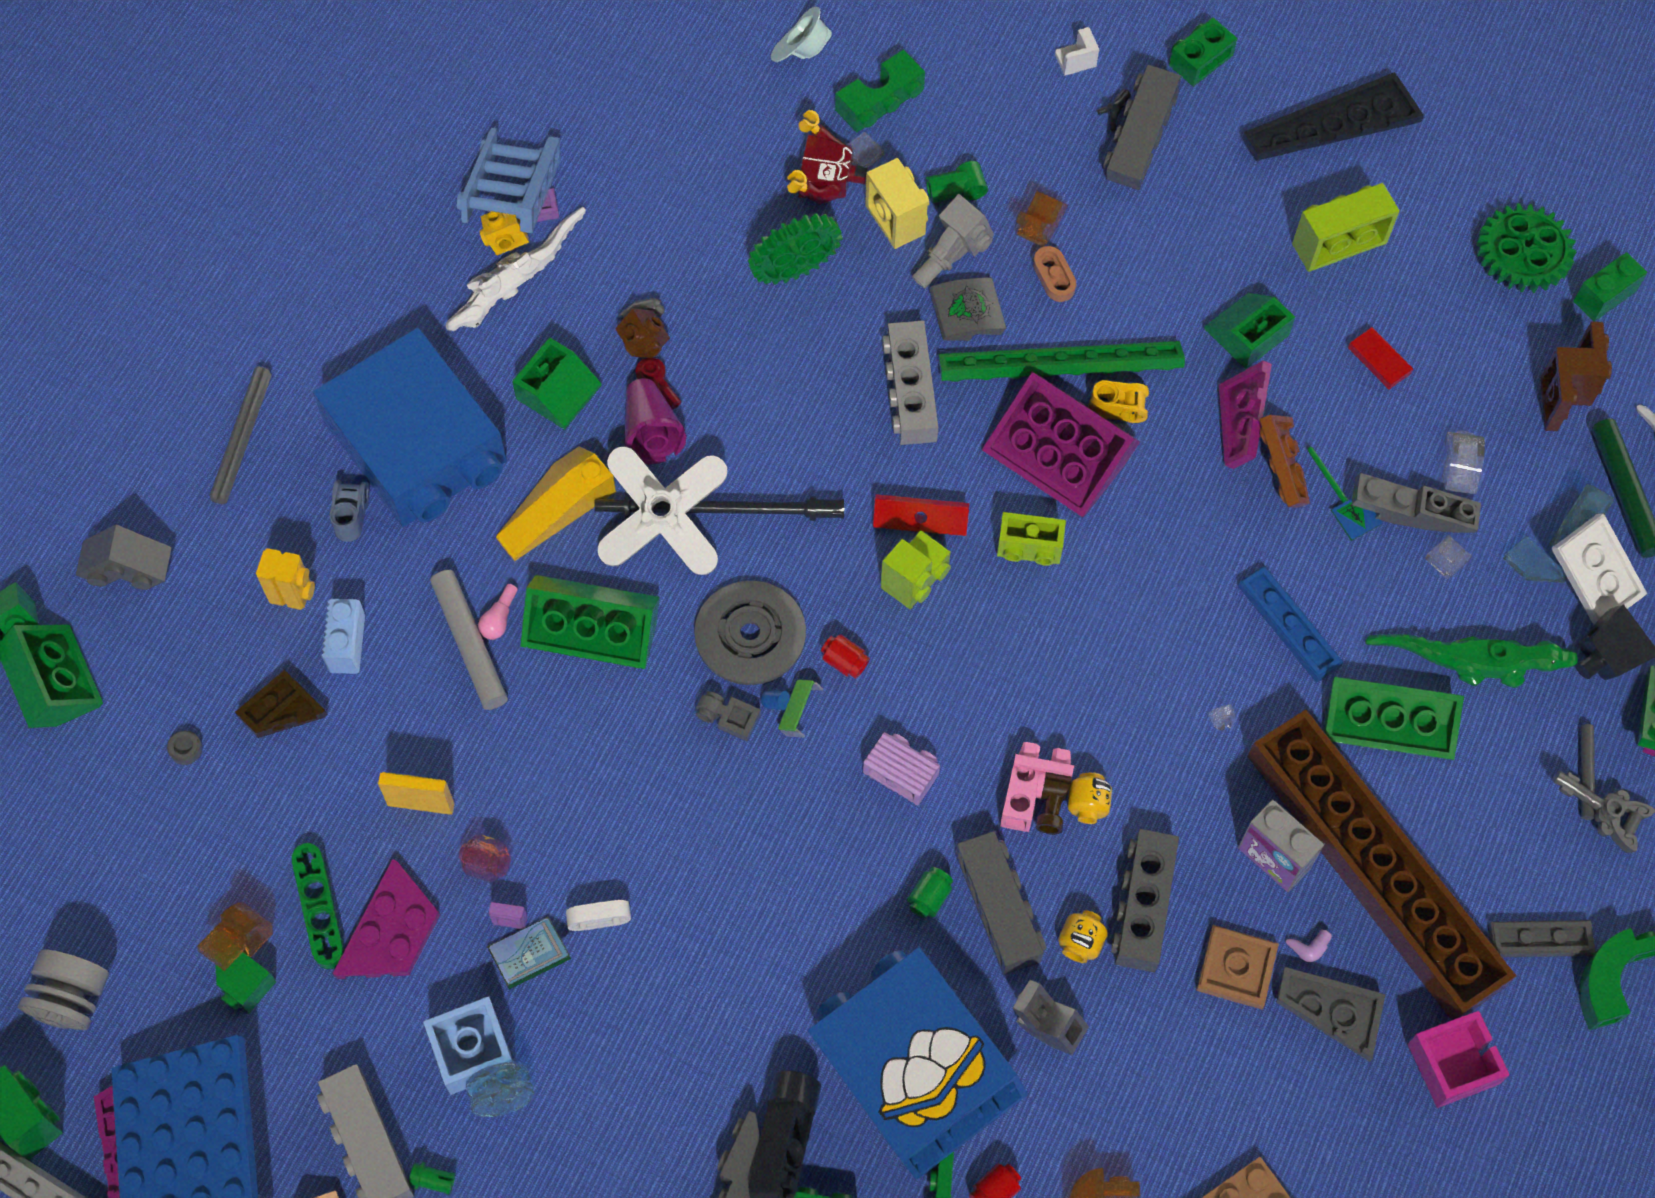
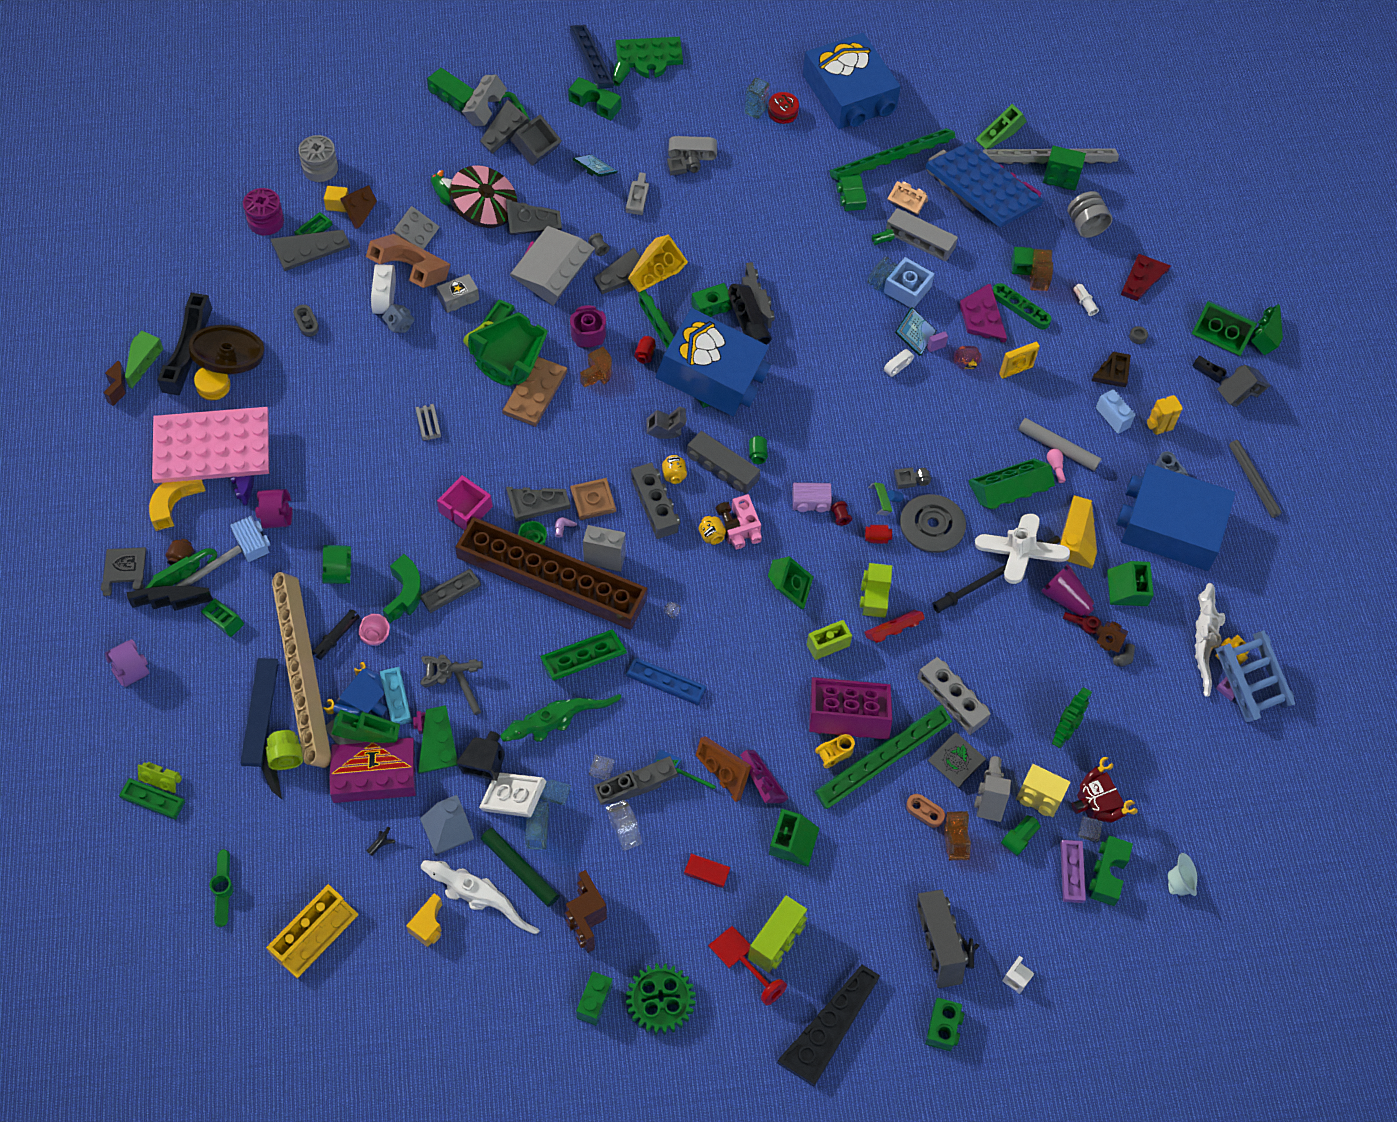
camera: 145 degrees right, 5 degrees down
(78, 843) = (1142, 276): none -> dark red wing
(138, 630) = (1213, 371): none -> black bar
(208, 853) = (1085, 299): none -> white axle
(875, 717) = (841, 513): none -> dark red bush
(925, 117) = (1072, 871): none -> medium lavender plate
(1027, 656) = (791, 580): none -> green slope
(1372, 950) = (533, 531): none -> green hat
(1401, 260) = (733, 947): none -> red piece

